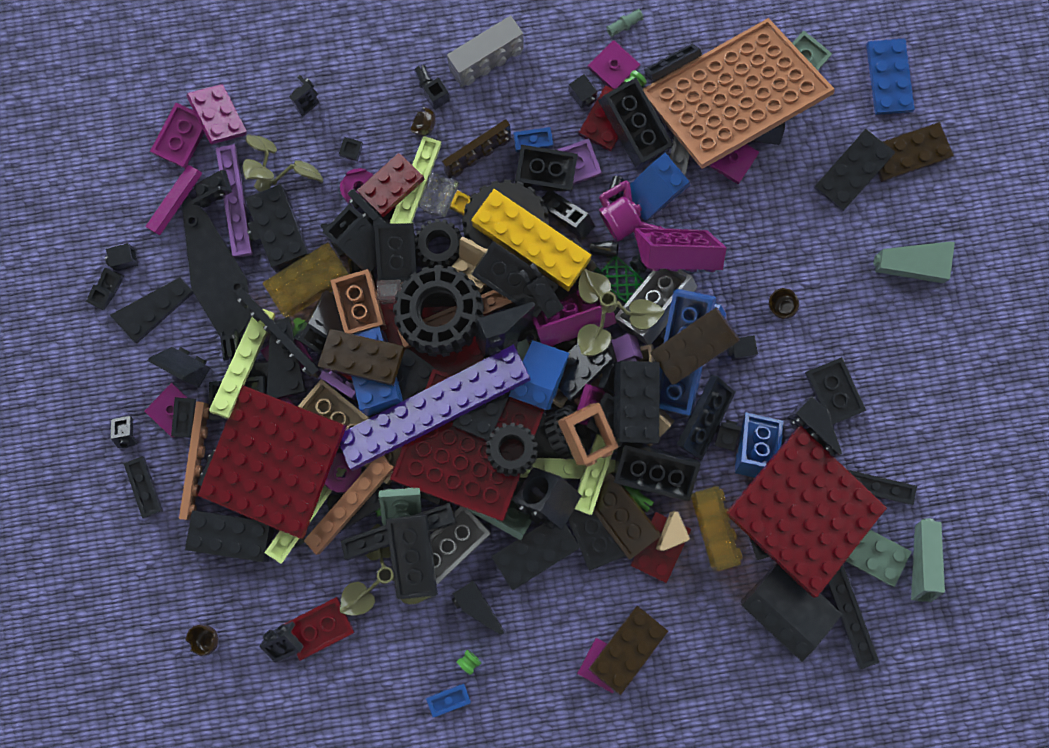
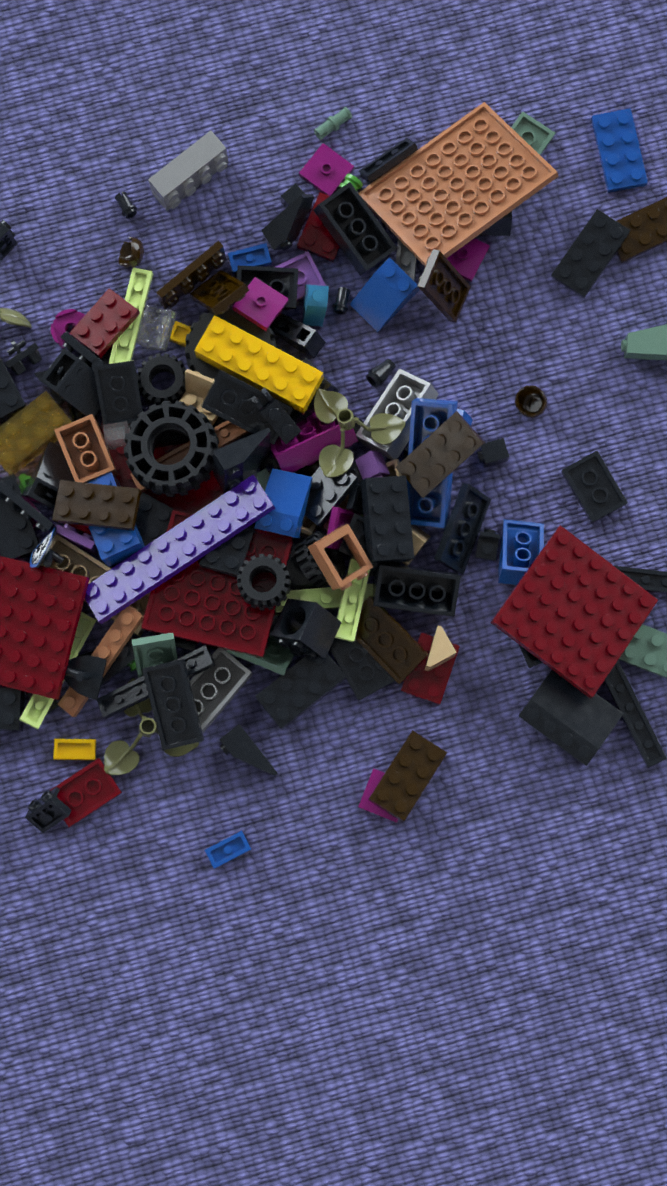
camera: 10 degrees left, 0 degrees up
(306, 395) = (44, 552): none -> shield
(315, 585) = (74, 749): none -> yellow tile
(319, 205) = (31, 352): none -> black hips
(332, 517) = (85, 675): none -> black shield
(341, 484) = (89, 641): magenta plate -> none
(350, 149) = (57, 289): black plate -> none
(436, 93) = (141, 221): black brick -> none
(468, 662) = (244, 808): bright green wheel -> none
(501, 168) = (219, 292): none -> dark brown plate
(538, 183) = (260, 304): none -> magenta plate
(573, 111) = (288, 224): none -> black slope
(589, 189) = (315, 304): none -> dark azure slope
(605, 248) = (338, 365): black cone -> none
(622, 214) = (353, 328): magenta piece -> none
(626, 278) = (373, 389): green window -> none
(639, 498) = (402, 619): bright green pin -> none
(680, 249) = (415, 357): magenta slope -> none
(714, 184) = (444, 285): none -> dark brown plate
(716, 529) = (483, 640): clear yellow brick -> none
(817, 423) = (575, 519): black slope -> none

